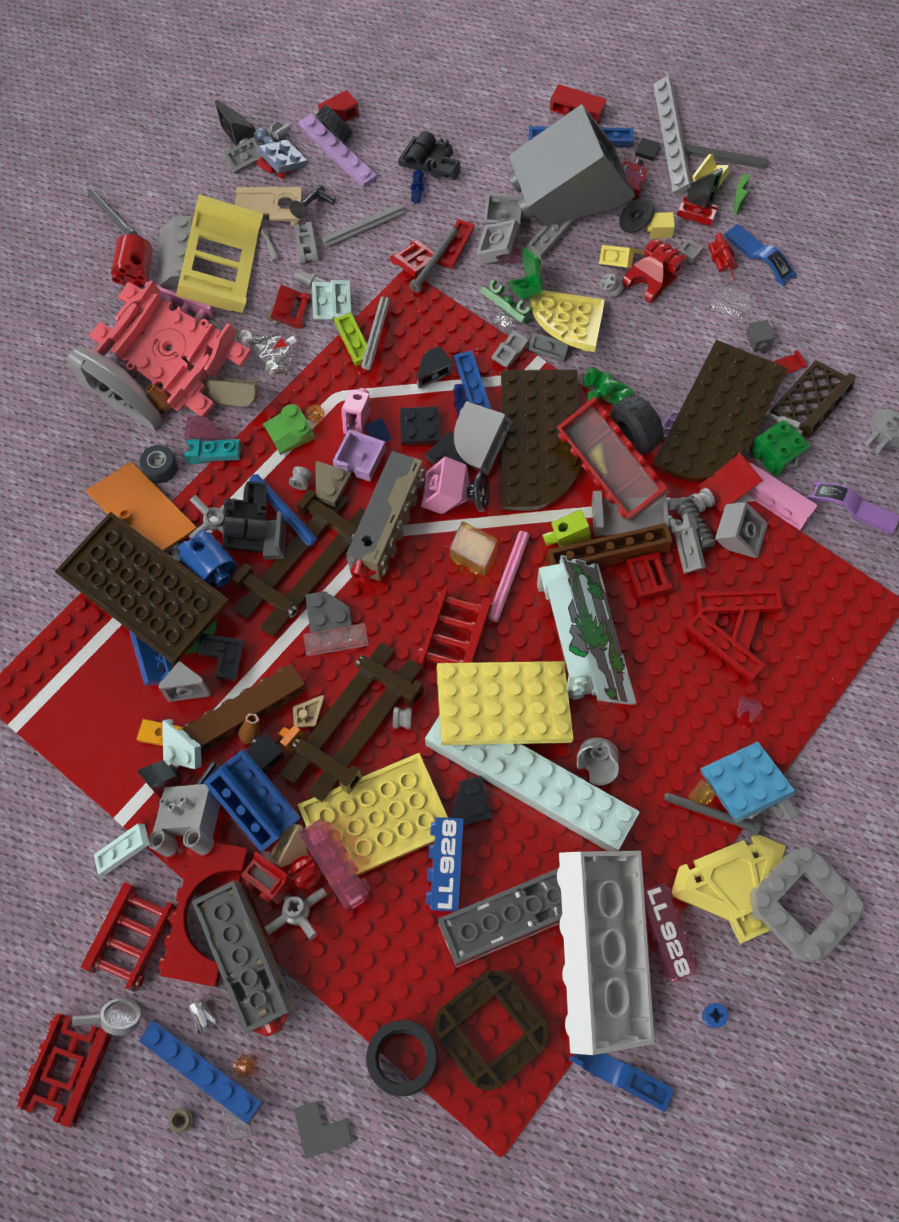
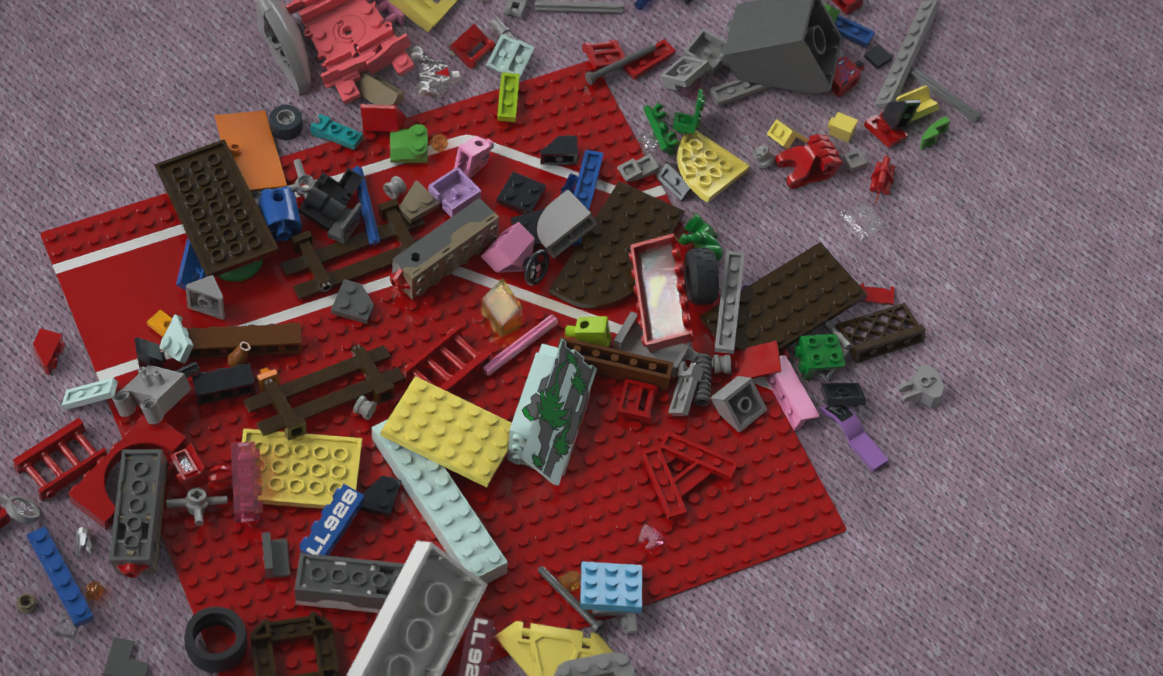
camera: 20 degrees right, 10 degrees down
(50, 819) = (47, 348): none -> red slope
(158, 397) = (316, 69): dark orange cone -> none
(203, 429) = (337, 111): clear pink slope -> none
(226, 650) = (255, 292): black plate -> none
(249, 416) = (381, 117): none -> red slope
(251, 799) = (209, 403): blue brick -> none
(288, 847) = (218, 455): tan slope -> none
(307, 713) = (292, 368): tan piece -> none
(335, 639) = (348, 325): clear plate -> none
(375, 333) = (530, 100): light grey axle -> none
(378, 430) = (483, 180): clear blue slope -> none
(407, 926) = (275, 557): none -> dark grey panel
(600, 759) = (502, 511): light grey helmet -> none
(629, 223) = (826, 108): black wheel -> none
(677, 438) = (729, 302): none -> light grey plate
(754, 249) = (922, 195): blue piece -> none
(760, 335) = (867, 259): dark grey brick -> none
(824, 473) = (843, 394): none -> black plate

